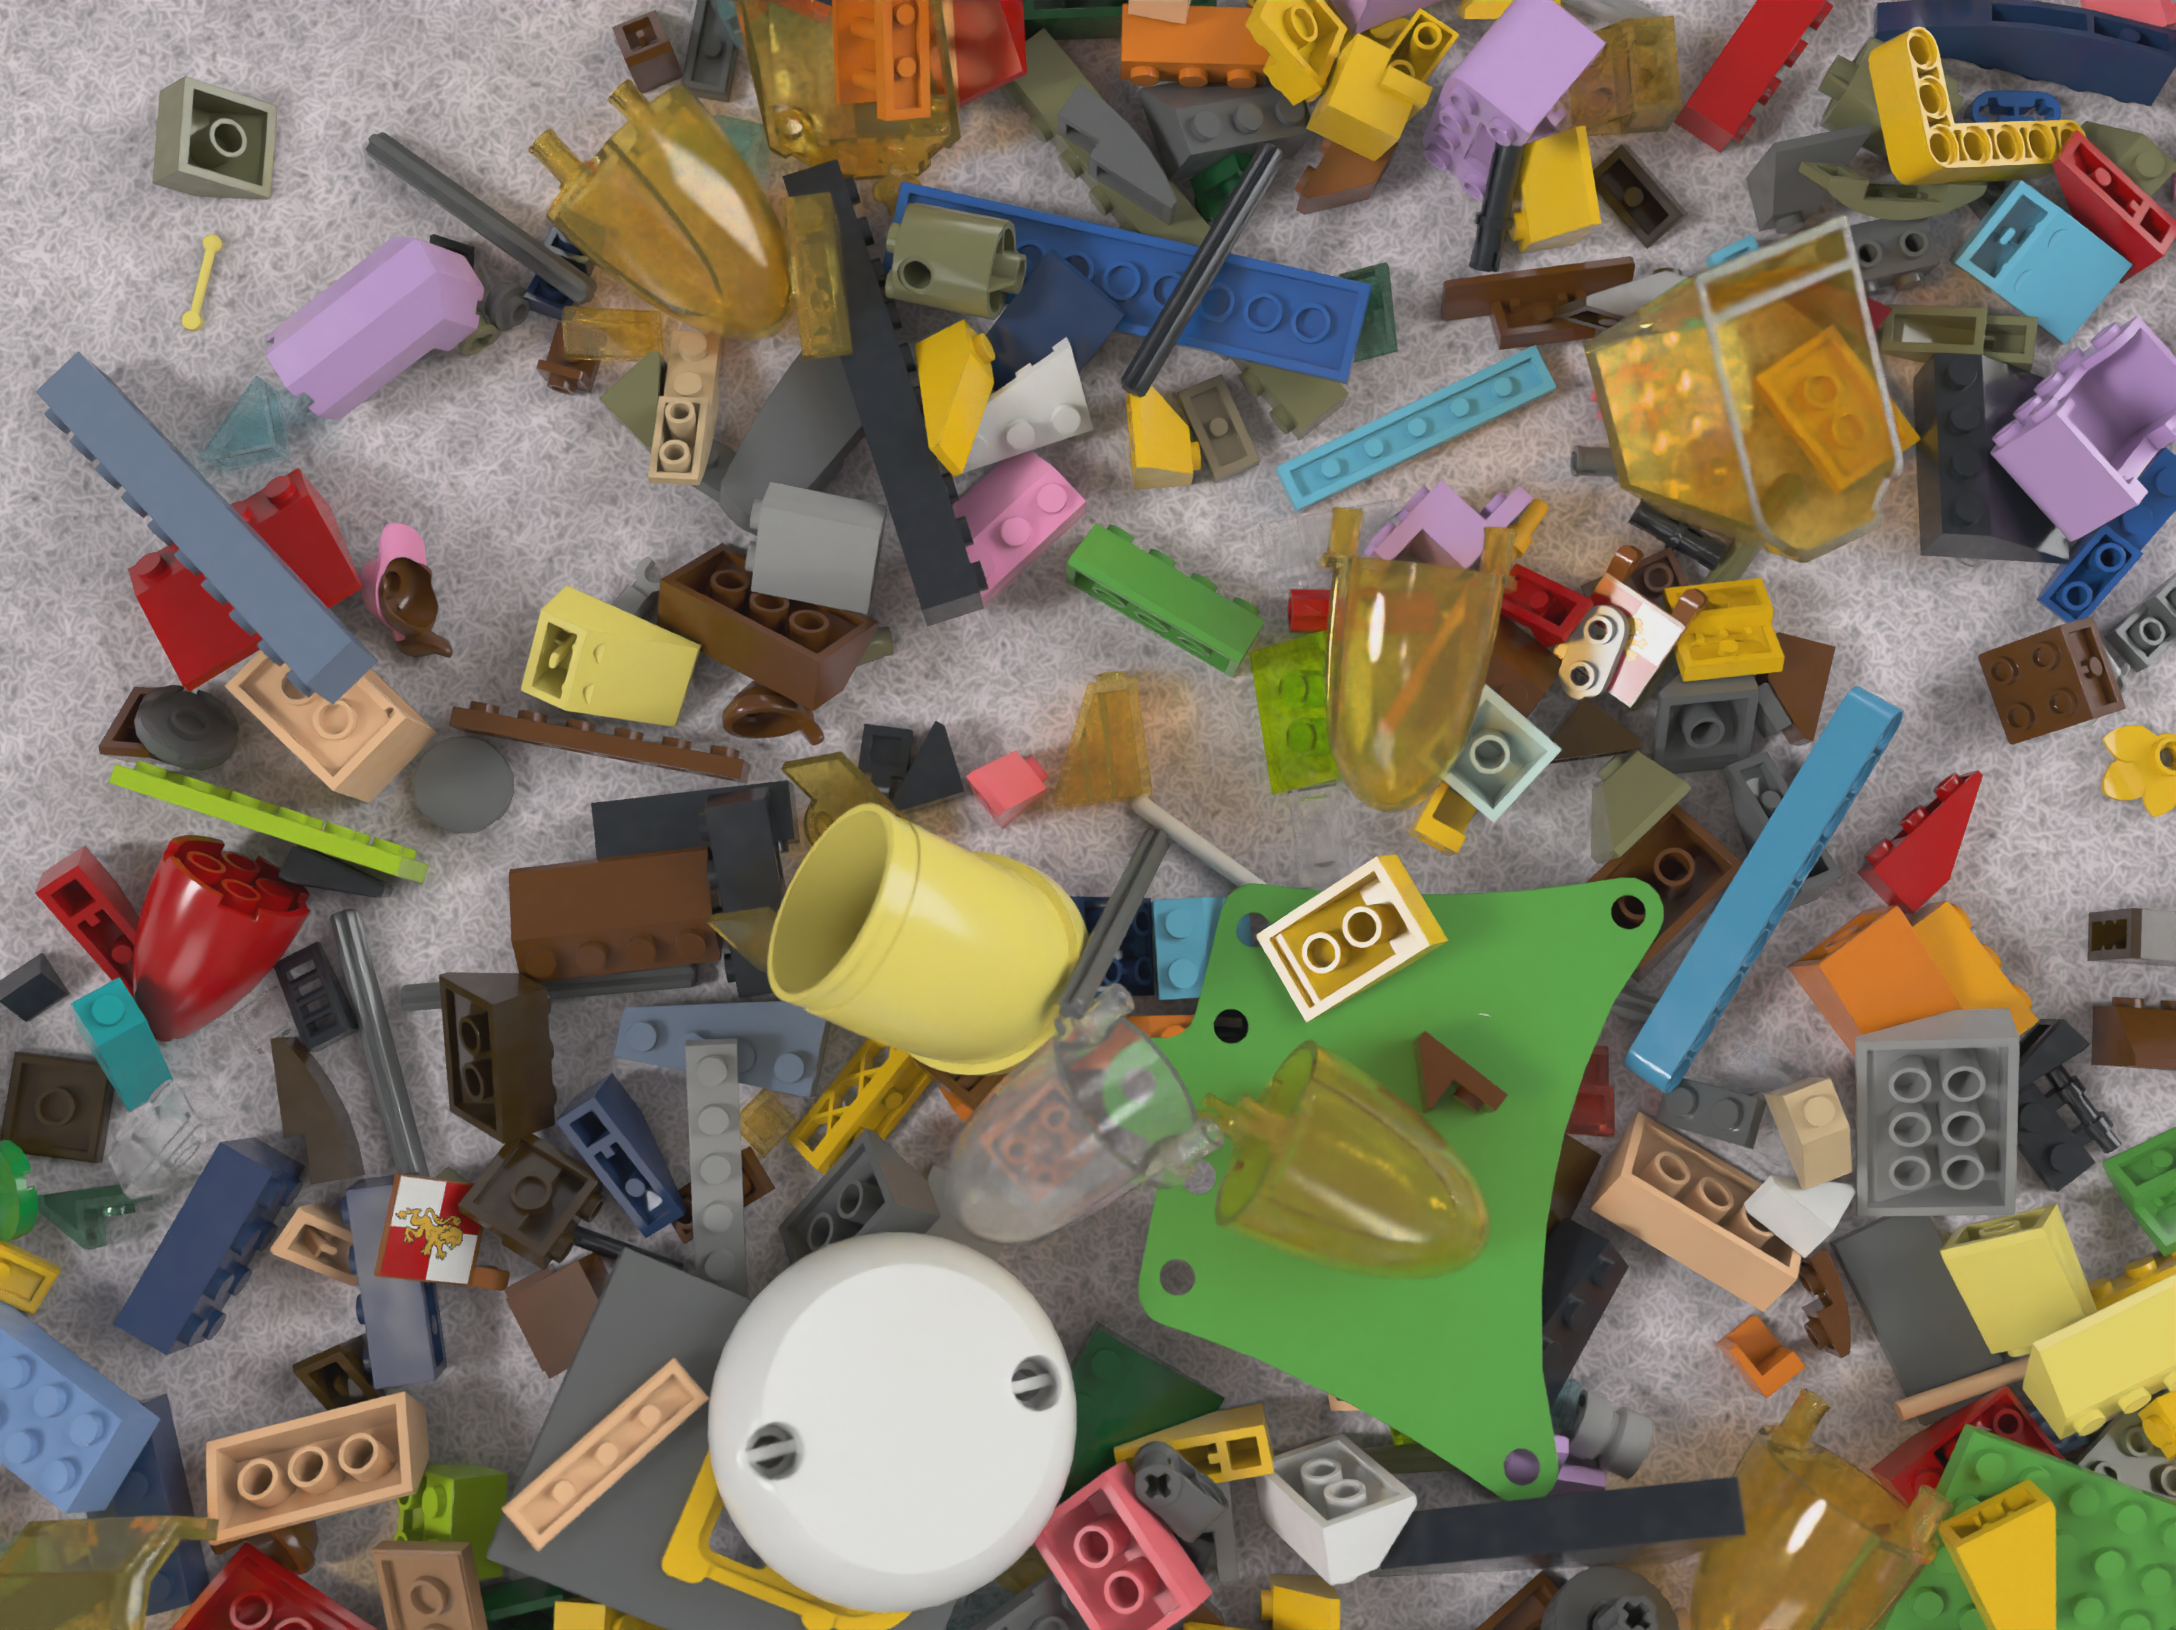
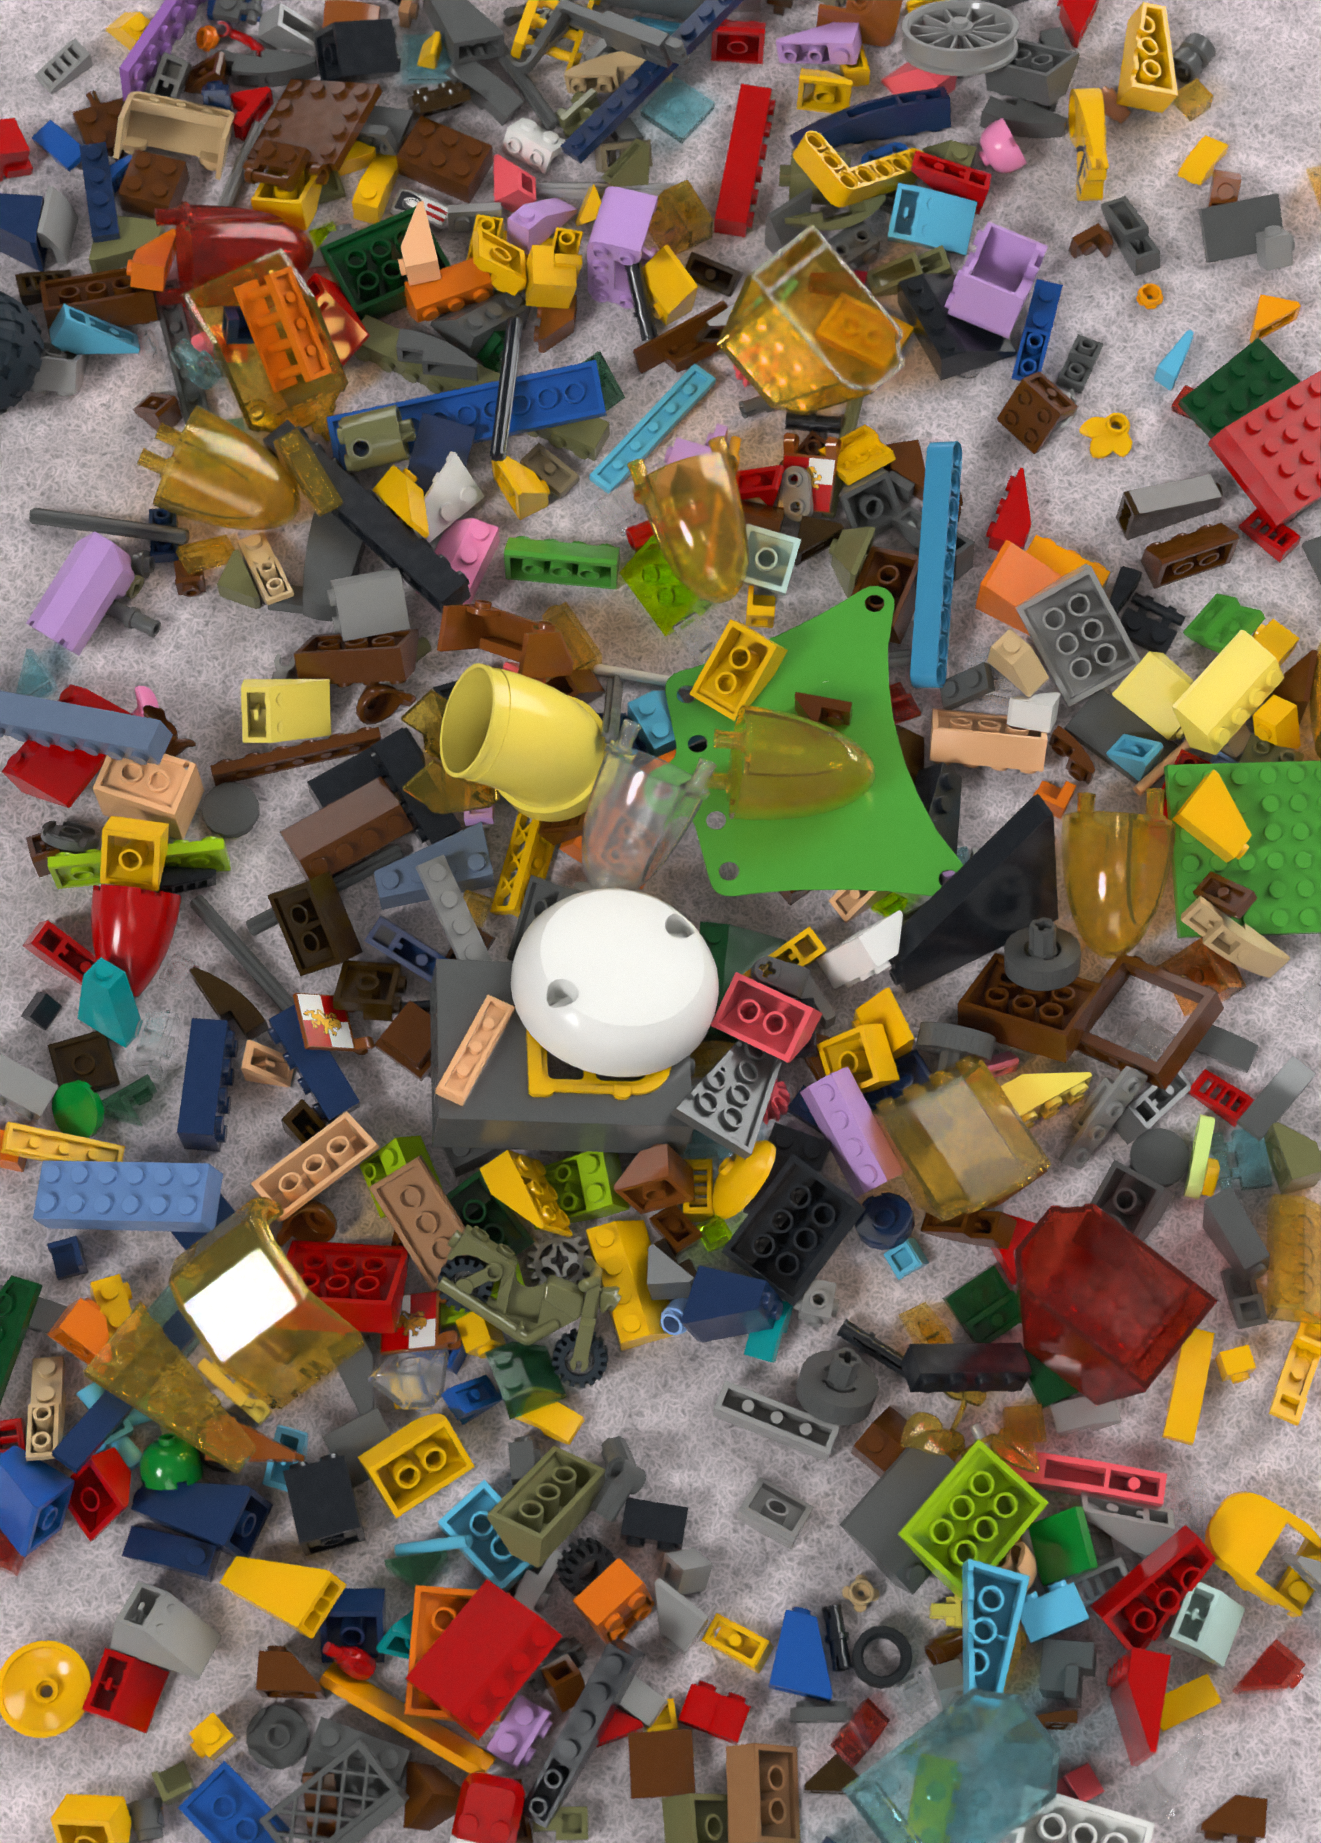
camera: 20 degrees left, 15 degrees down
(242, 824) = (133, 852): none -> yellow slope
(345, 1023) = (217, 962): black slope -> none
(454, 392) = (134, 618): none -> dark grey pin
(1048, 765) = (533, 644): none -> dark orange windscreen
(1080, 831) = (580, 684): none -> reddish brown slope
(1928, 1356) = (1135, 754): none -> medium azure slope

